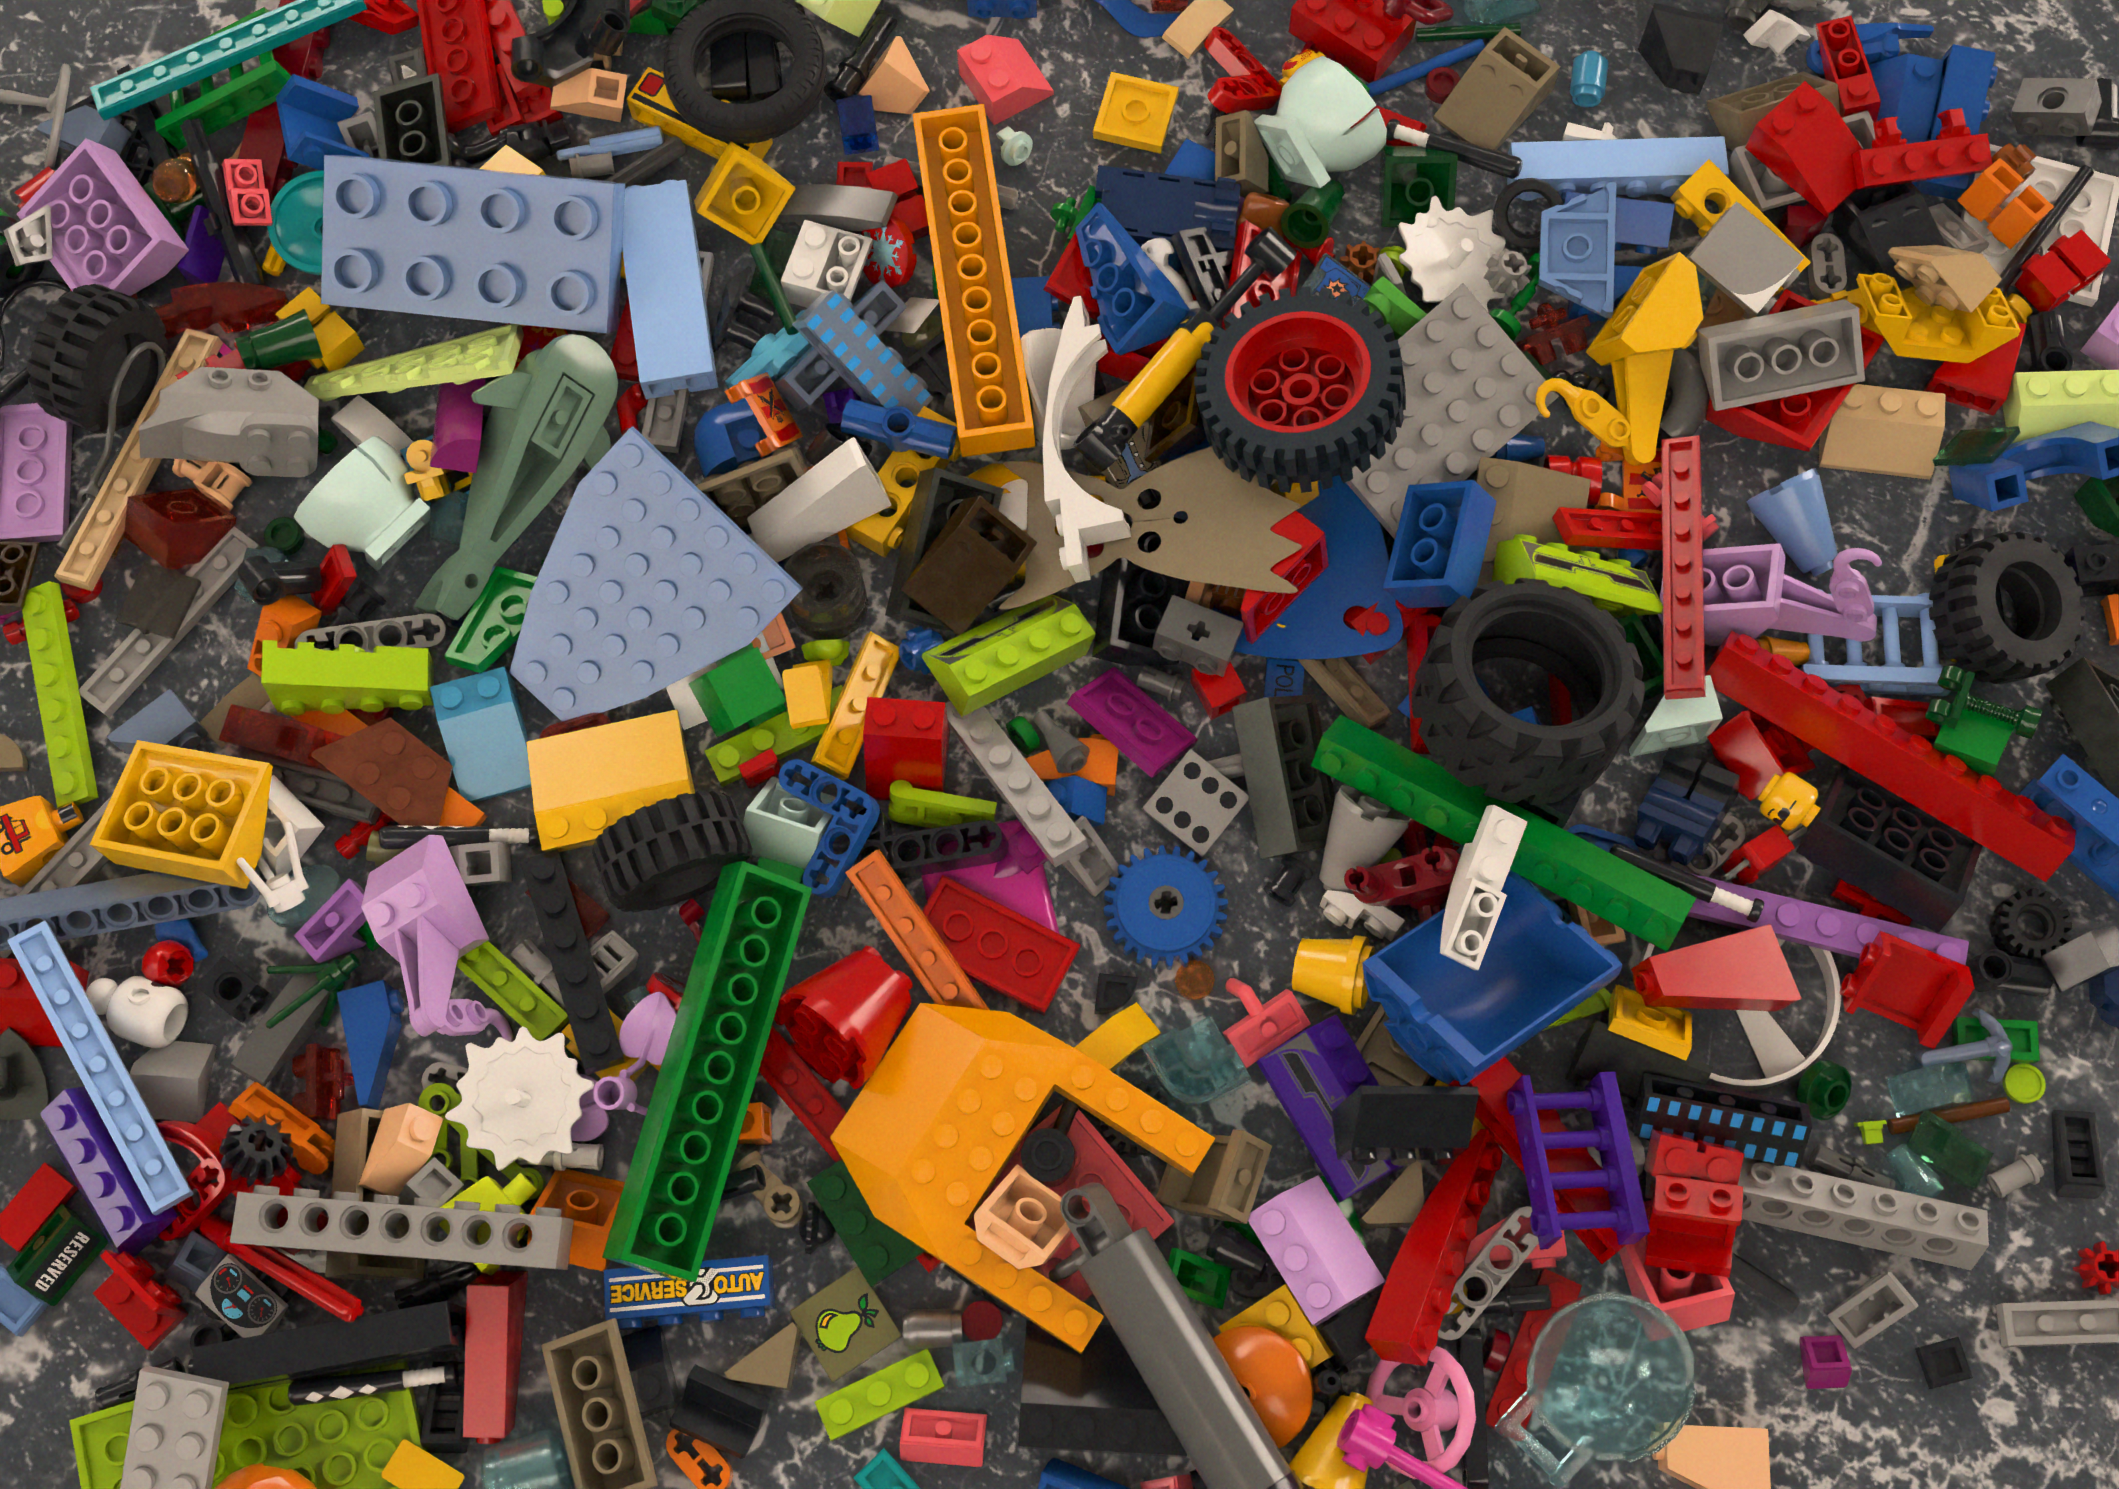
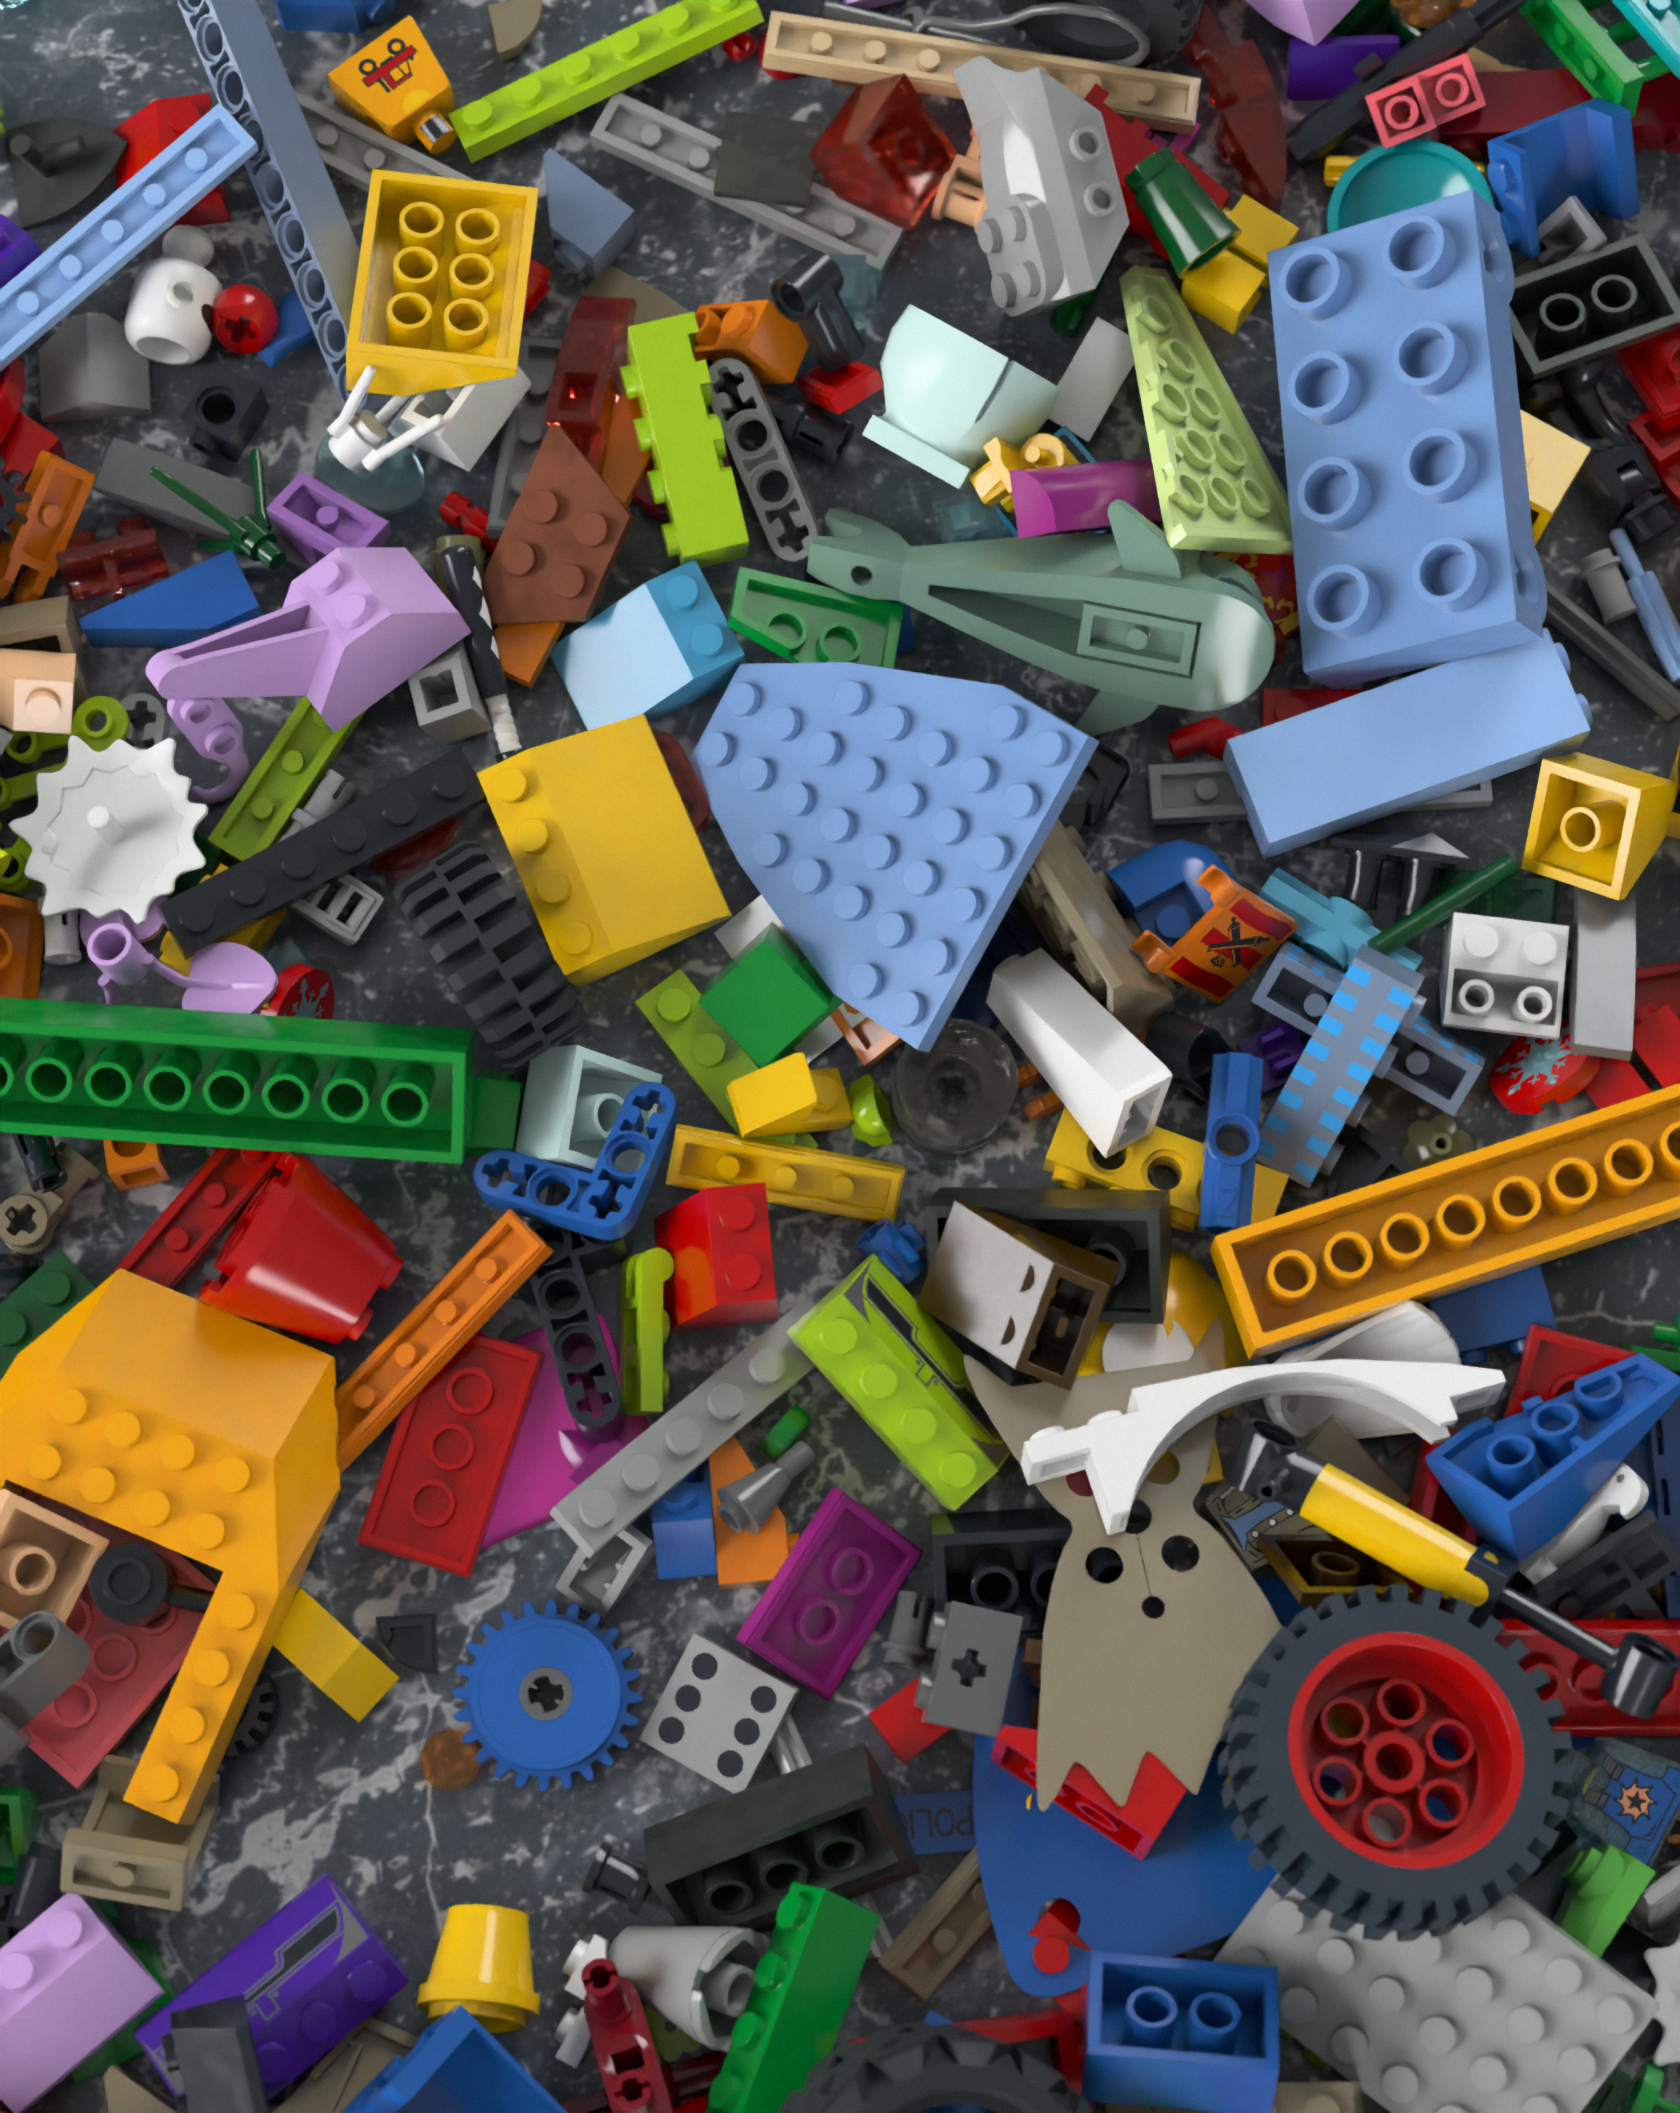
camera: 80 degrees right, 5 degrees up
(284, 535) = (906, 290): dark green tile -> none
(690, 913) = (432, 1003): dark red hand -> none
(760, 768) = (663, 1054): red tile -> none
(913, 315) = (1452, 1134): white sticker -> none
(1196, 1064) = (304, 1780): clear light blue brick -> none
(1265, 1025) = (388, 1875): coral plate -> none

